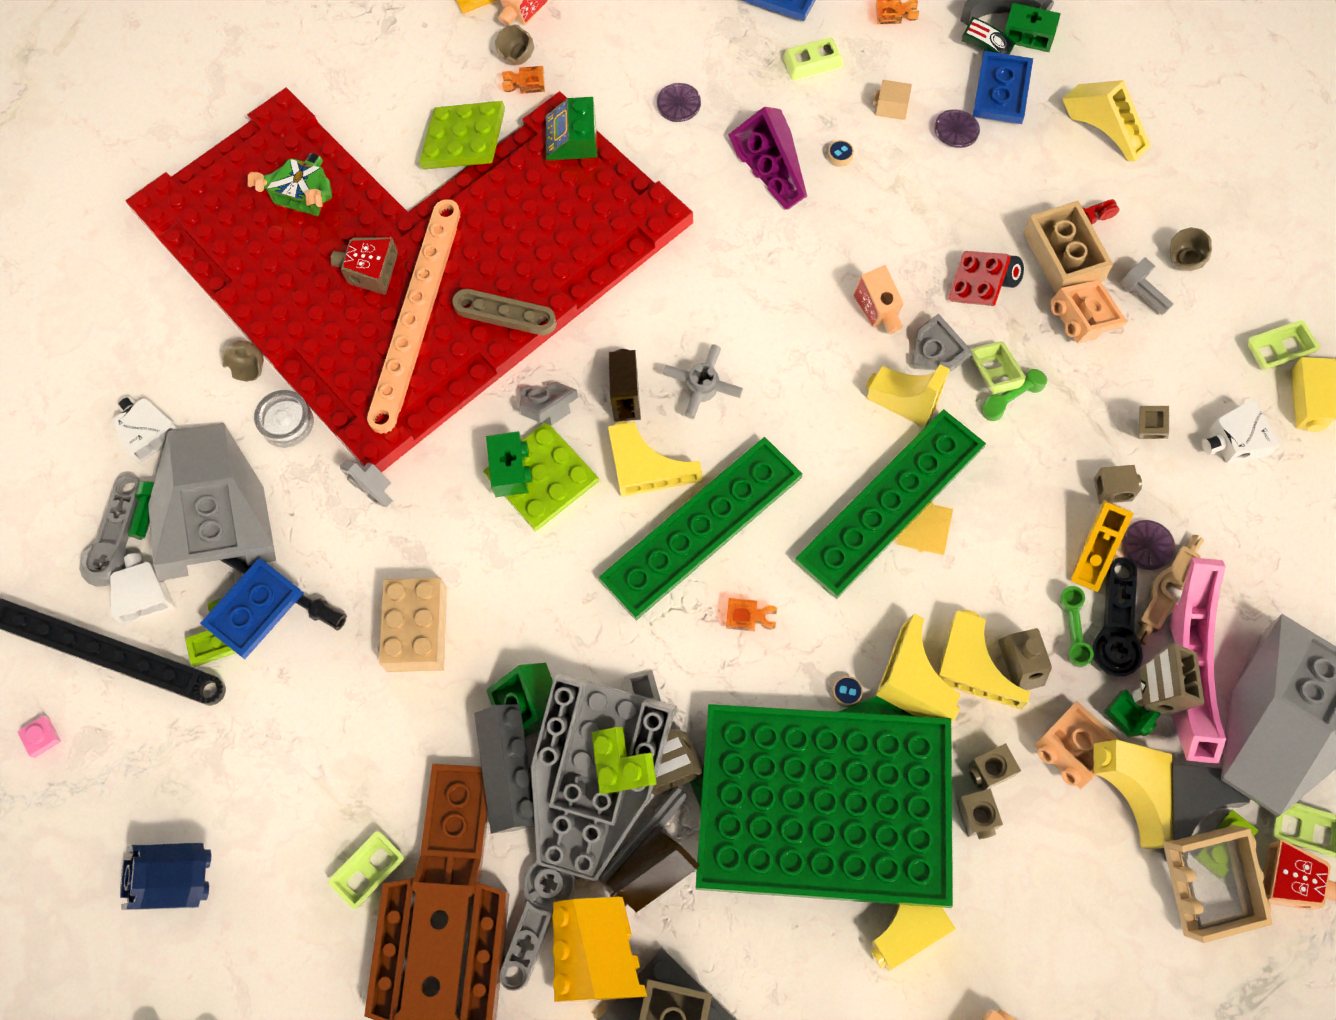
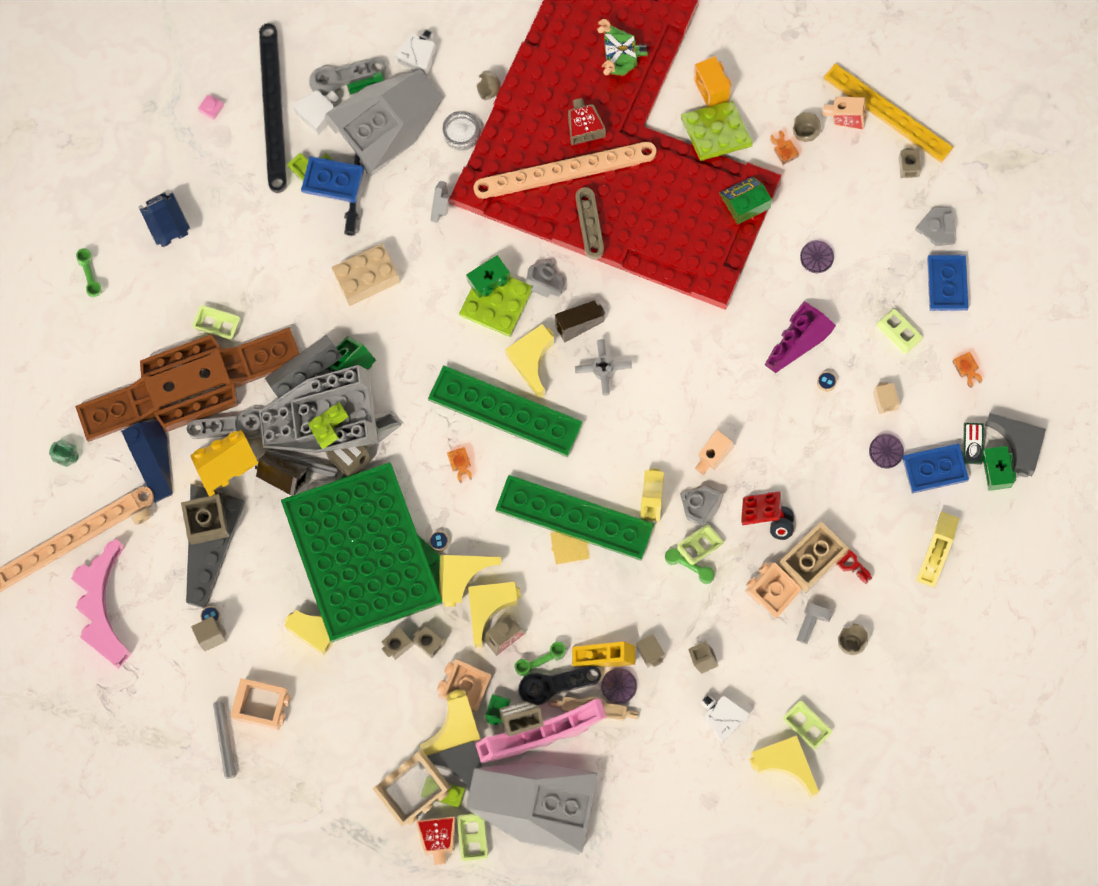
camera: 65 degrees right, 5 degrees up
(400, 112) = (712, 82): none -> light orange brick

